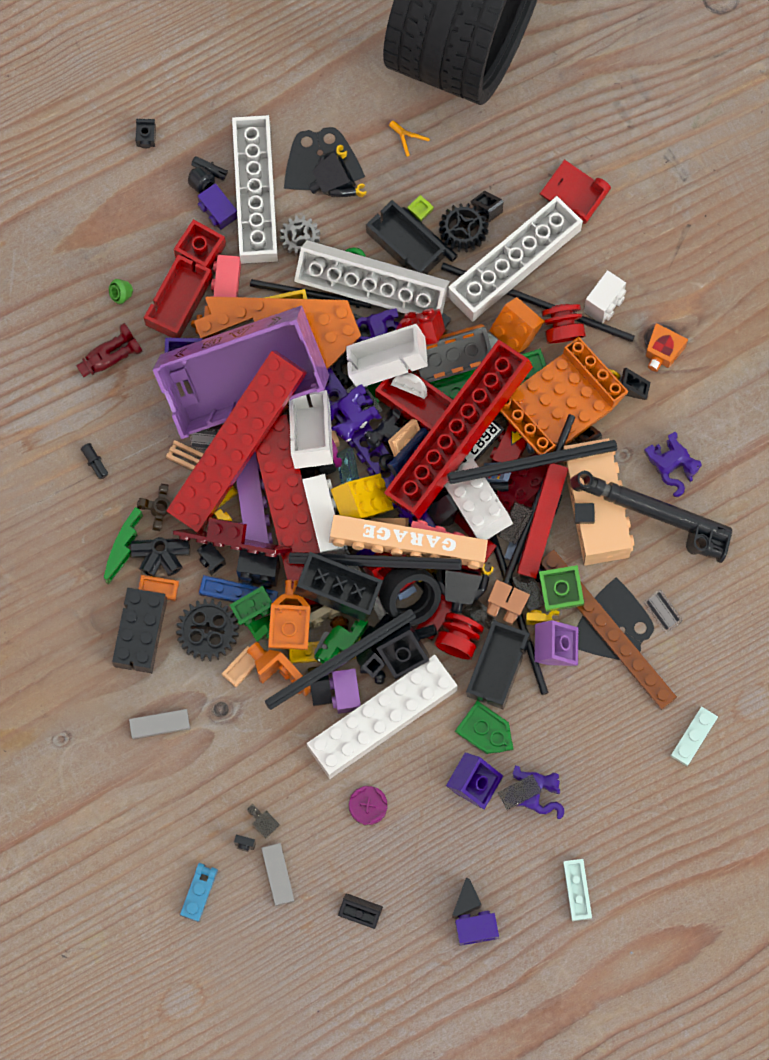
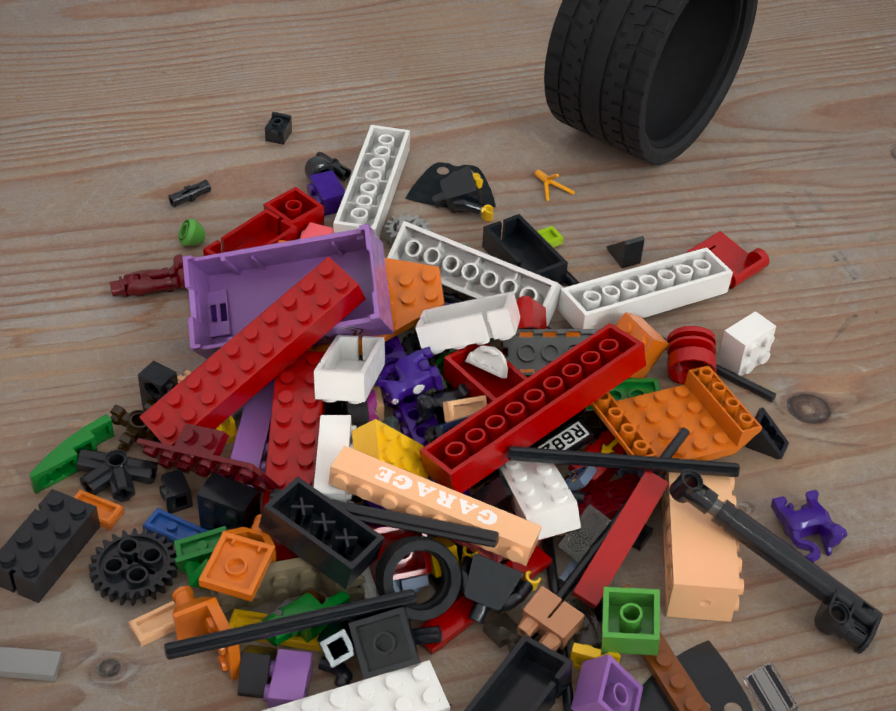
camera: 10 degrees right, 30 degrees down
(90, 248) = (189, 193): none -> black pin
(94, 461) = (83, 368): black axle -> none
(166, 472) = (156, 382): none -> black brick
(459, 634) = (470, 648): red wheel -> none
(476, 219) = (592, 259): black gear -> none
(584, 513) = (681, 534): black tile -> none
(664, 347) = (813, 410): orange torso -> none

